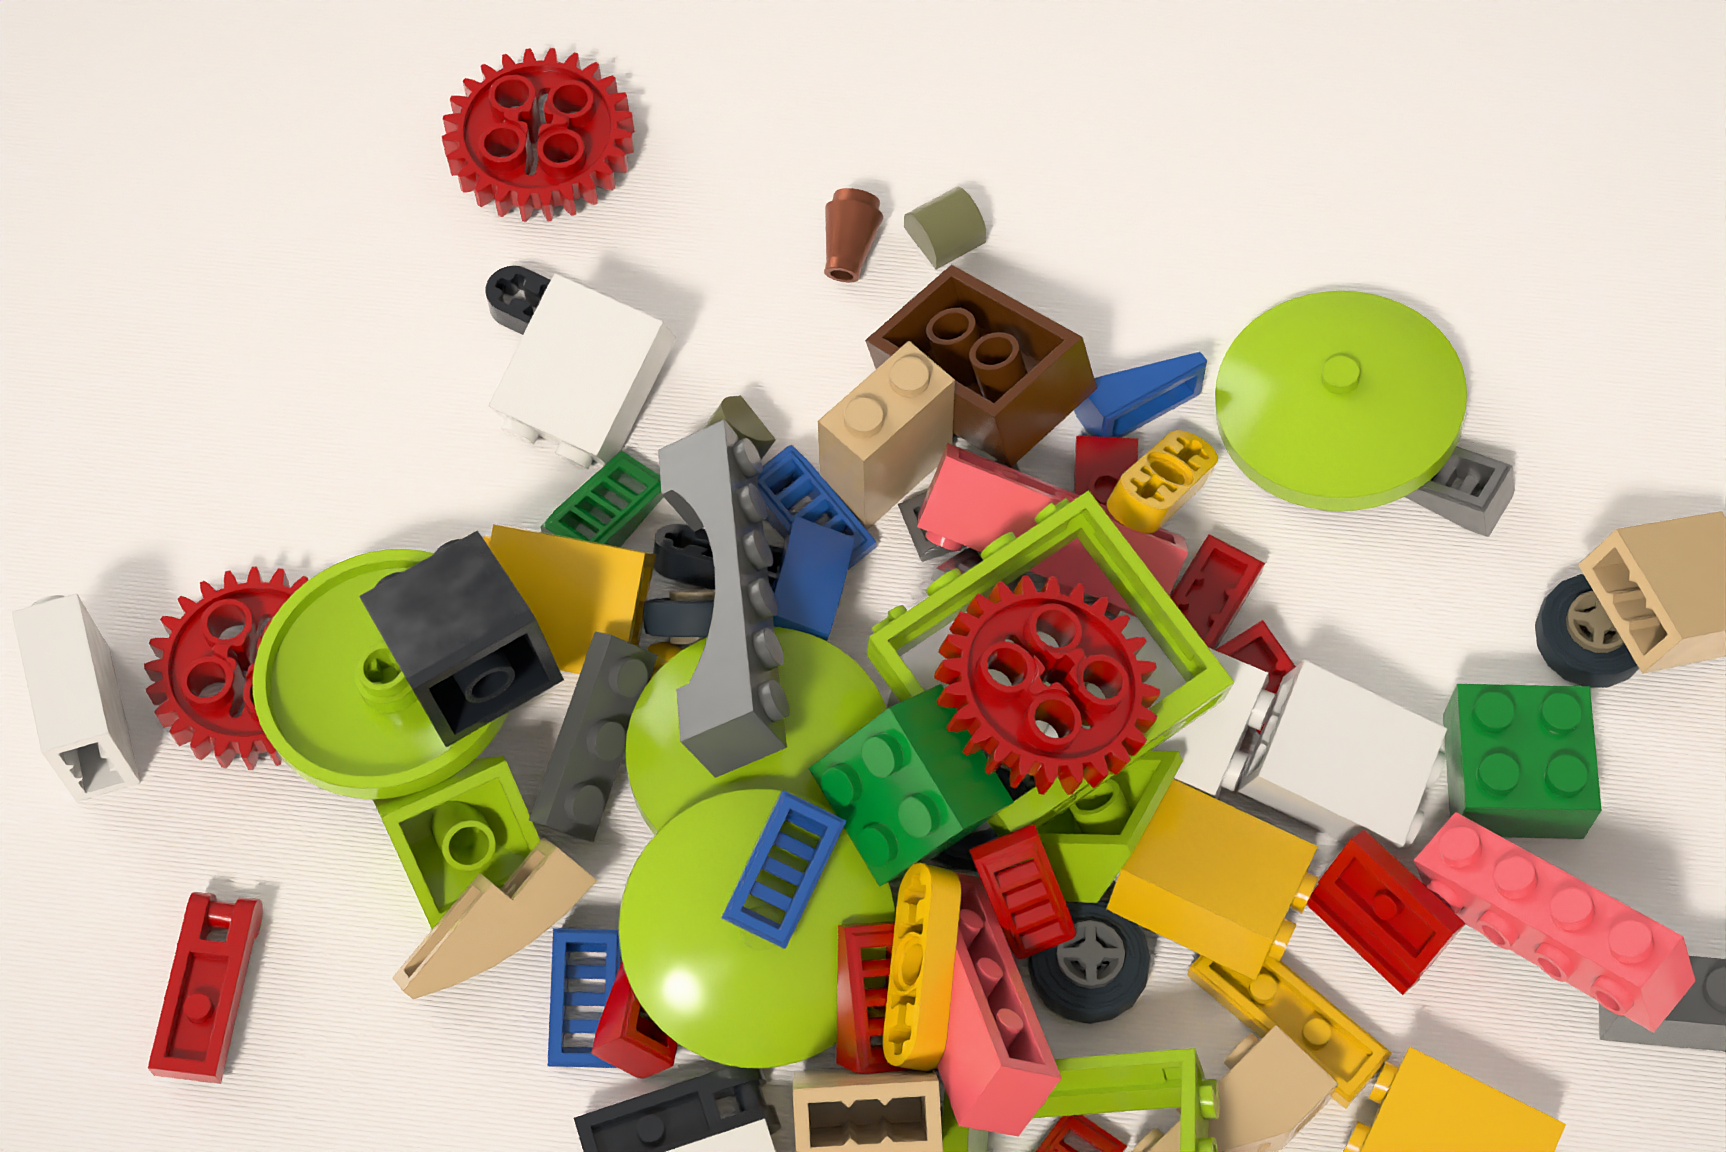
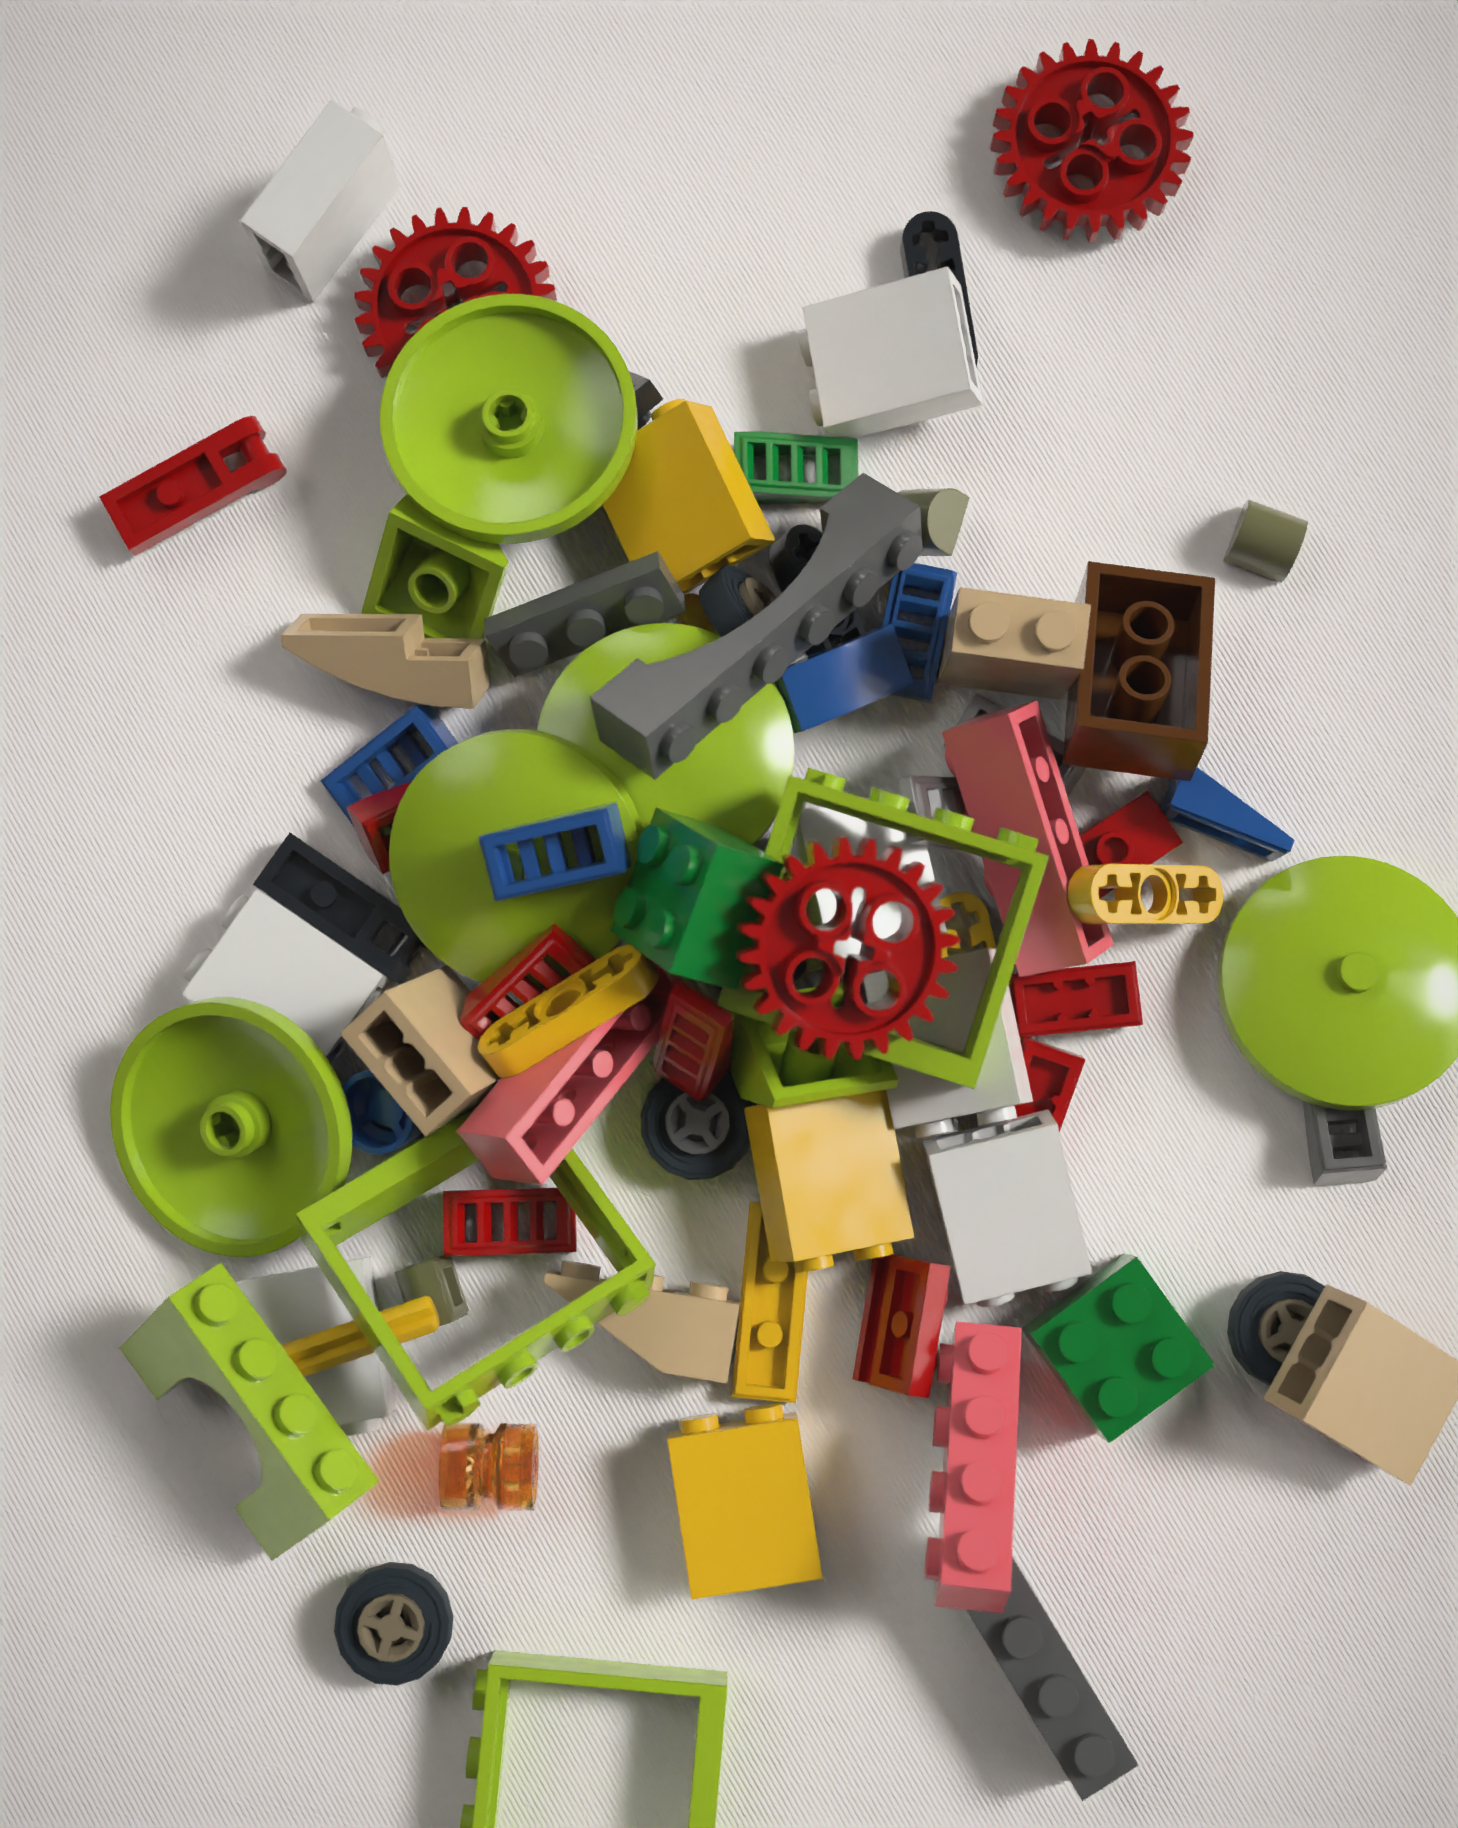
camera: 50 degrees right, 20 degrees up
(462, 637) = (557, 454): black slope -> none
(850, 230) = (1196, 467): copper cone -> none

